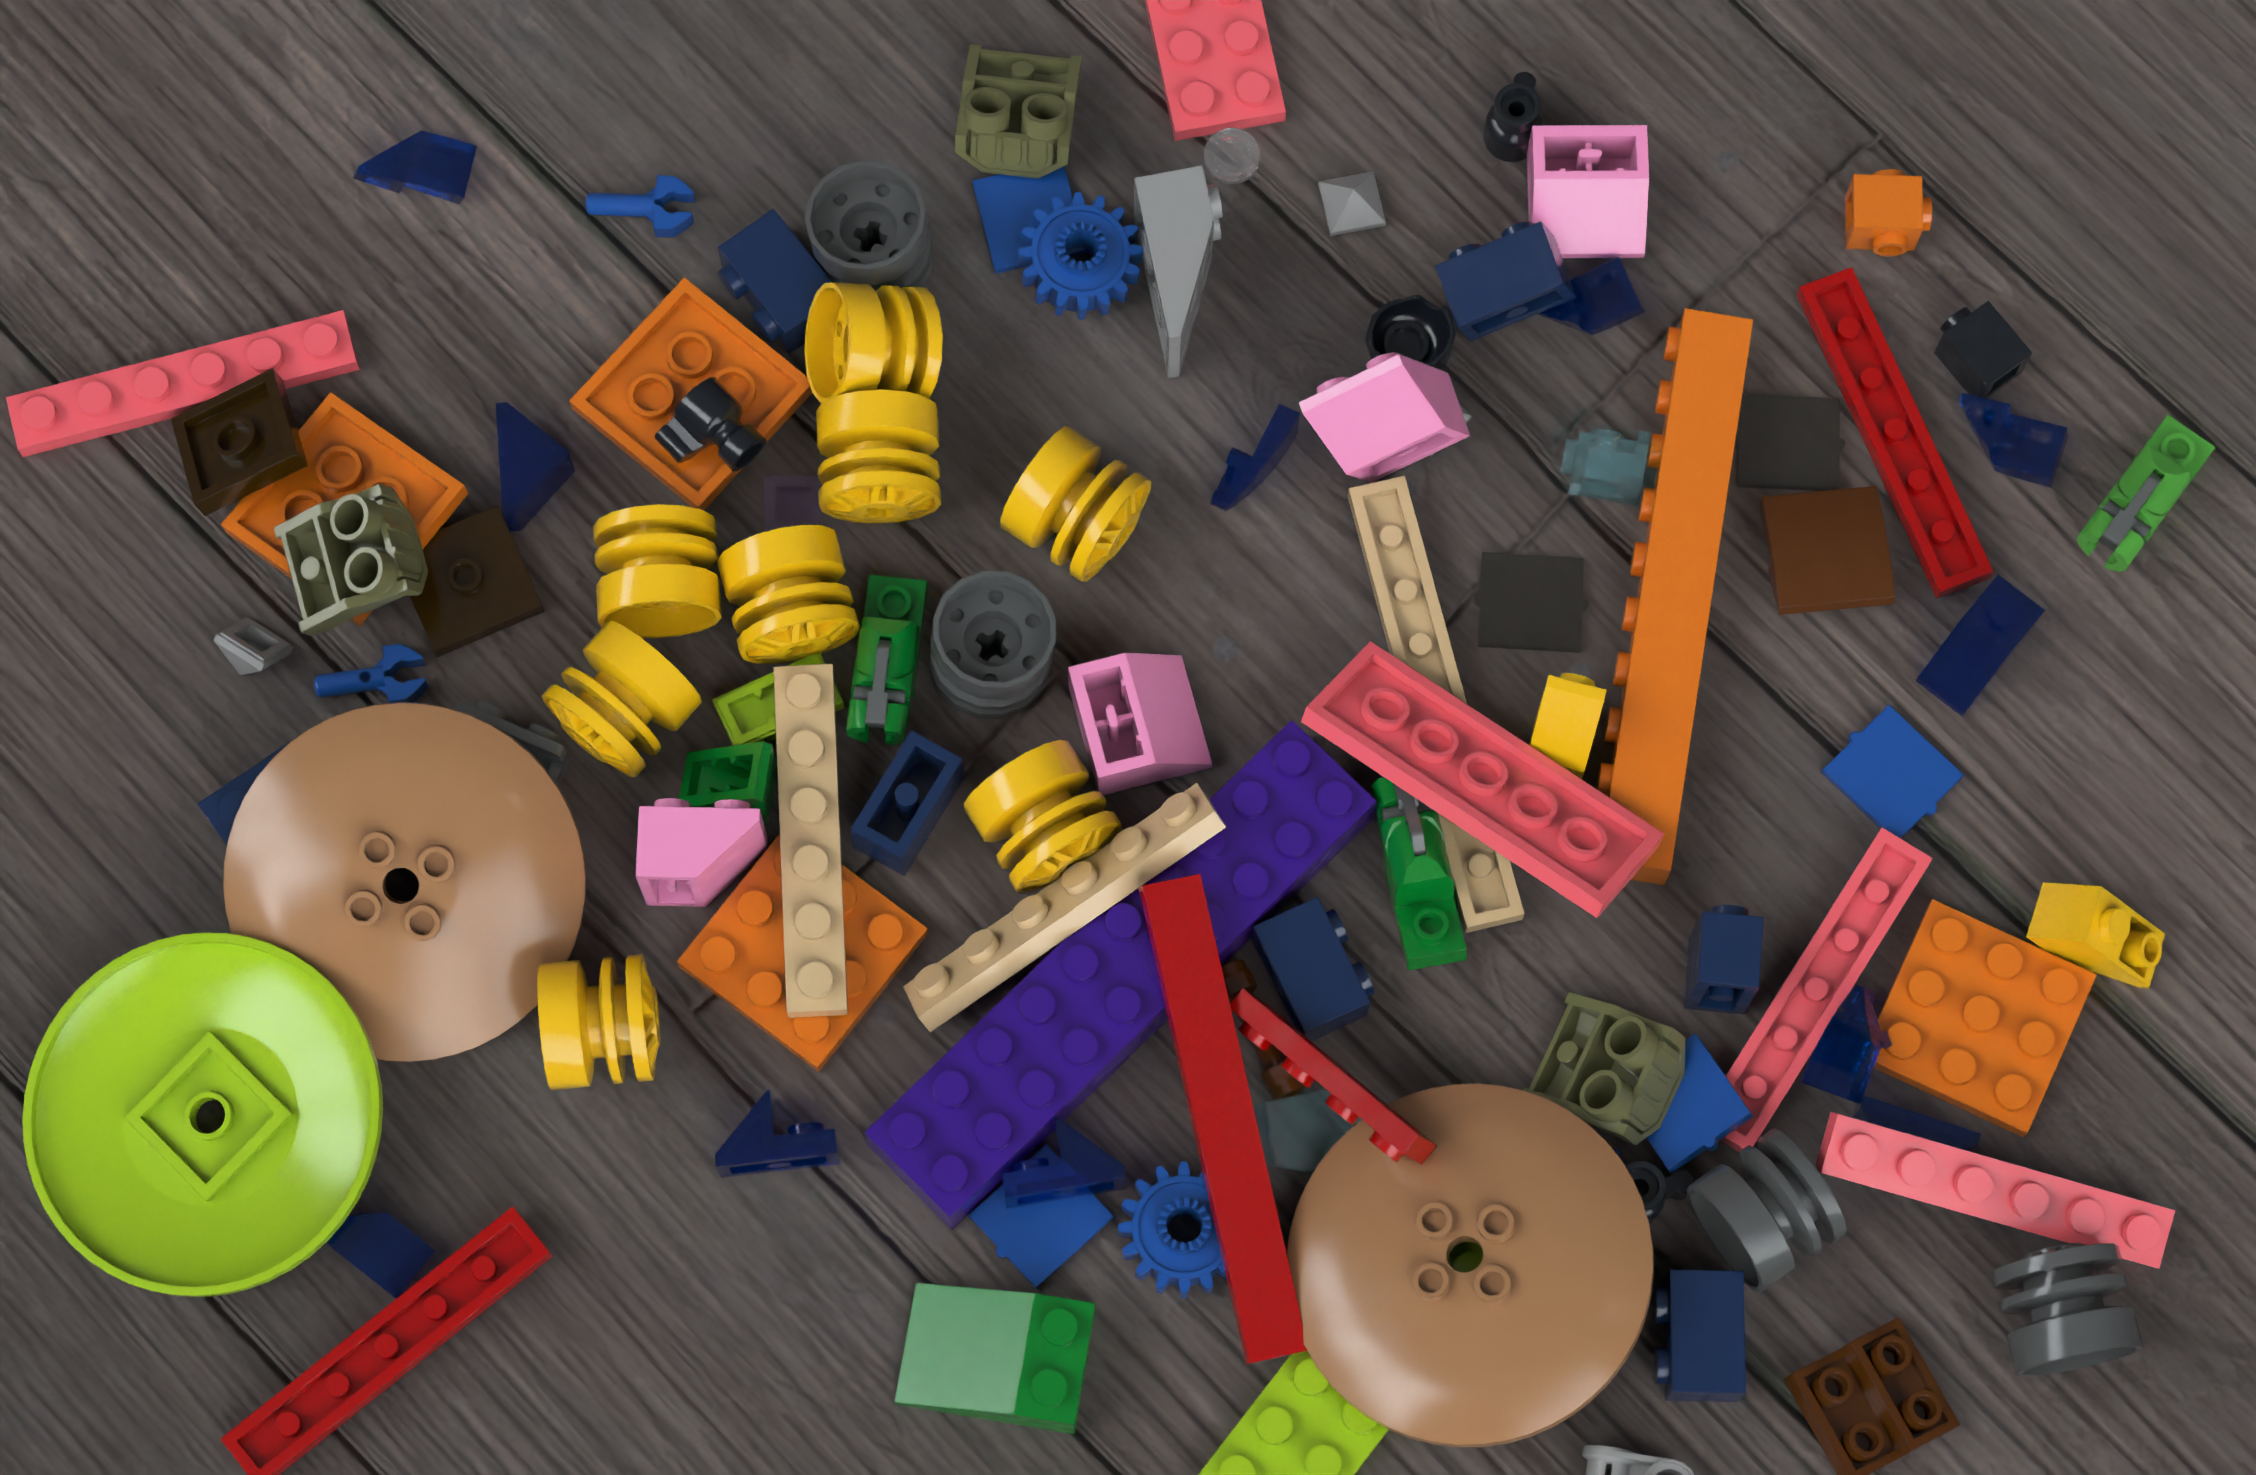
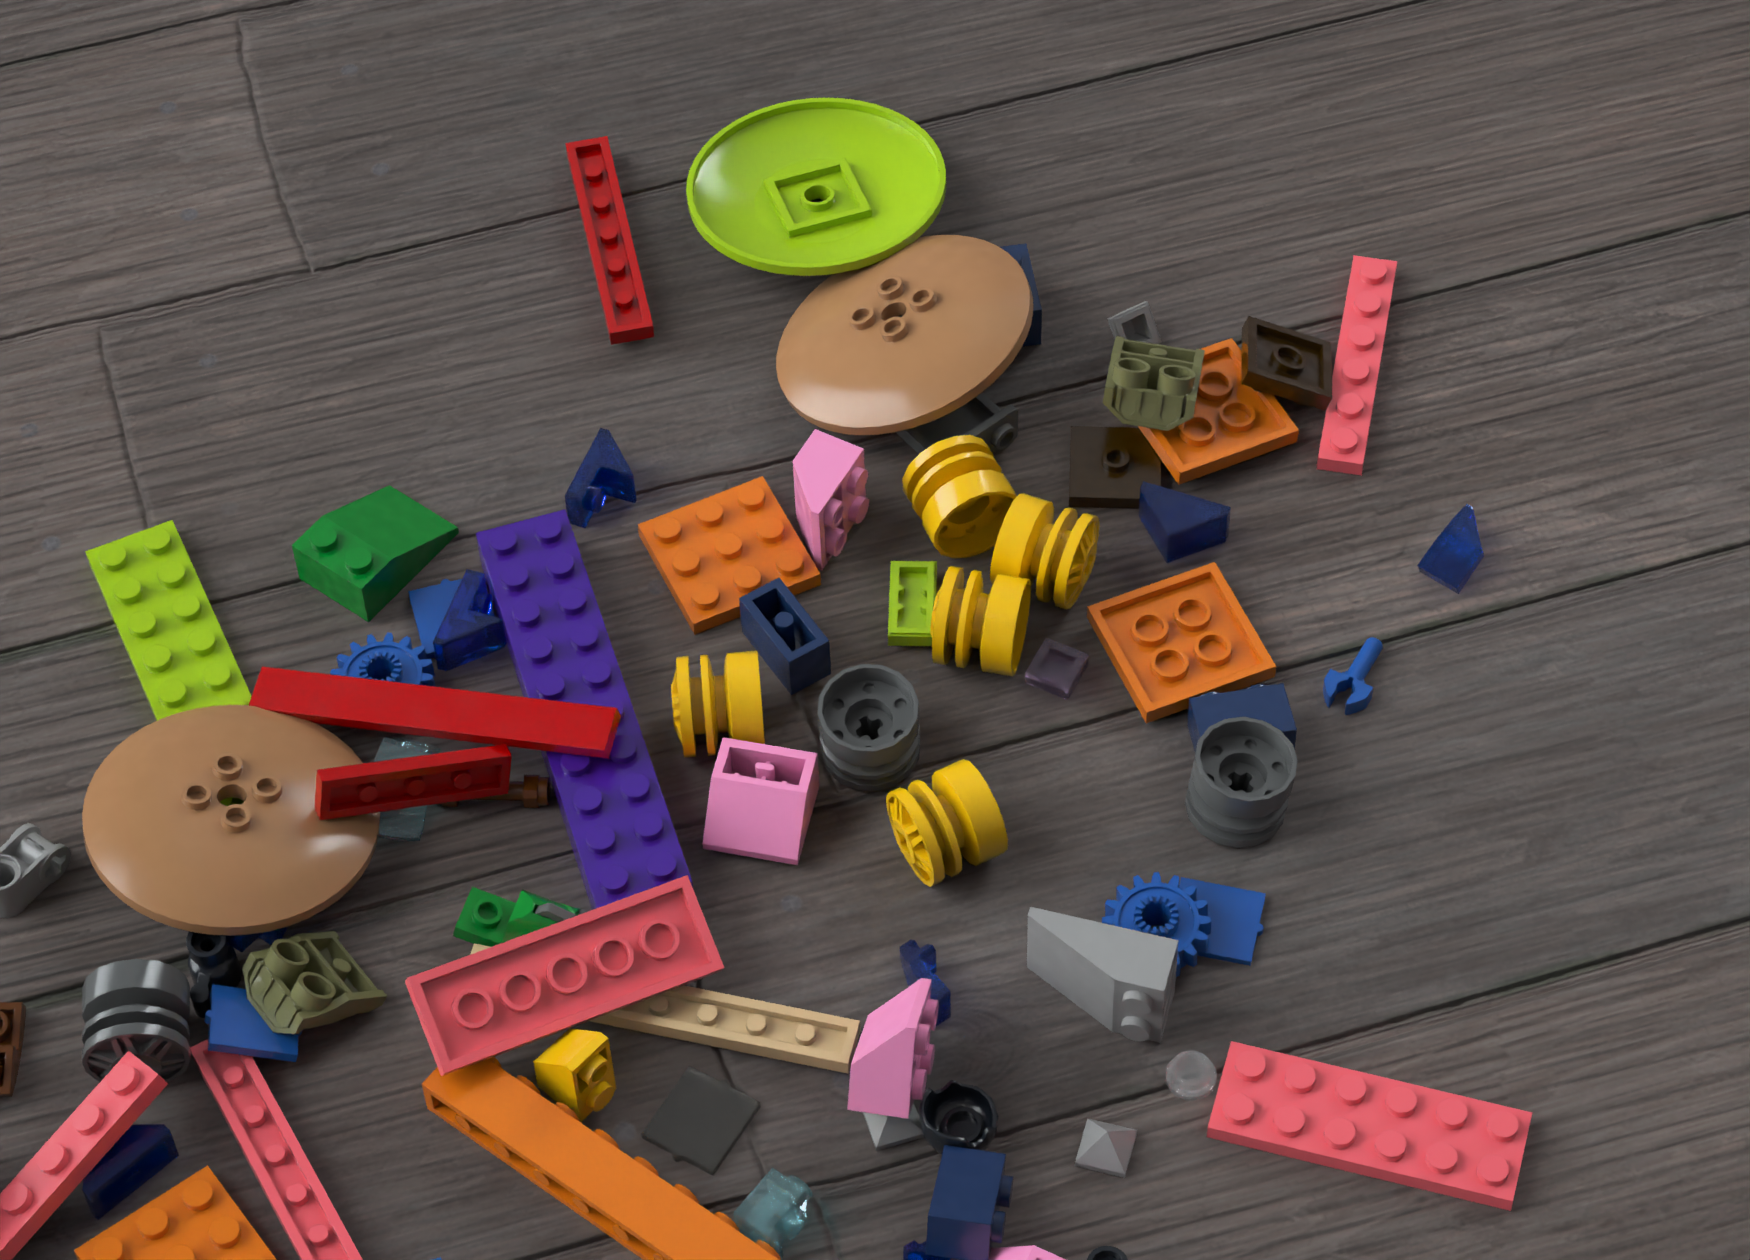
camera: 120 degrees right, 20 degrees down
(377, 677) = (1072, 394): blue bar -> none
(381, 1249) = (675, 257): clear blue slope -> none
(596, 1021) = (741, 400): yellow wheel -> none
(707, 418) = (1144, 626): black piece -> none
(732, 773) = (865, 555): green slope -> none
(810, 841) = (803, 571): tan plate -> none
(872, 340) = (1144, 738): yellow wheel -> none
(878, 456) = (1046, 712): yellow wheel -> none
(887, 658) = (941, 700): green plate -> none
(1017, 112) = (1309, 937): olive slope -> none
(1063, 907) = (646, 691): tan plate -> none
(1312, 969) = (509, 834): dark blue brick -> none
(1701, 1335) = (75, 945): dark blue brick -> none
(1724, 960) = (330, 1085): dark blue brick -> none
(1848, 1048) = (219, 1148): clear blue slope -> none

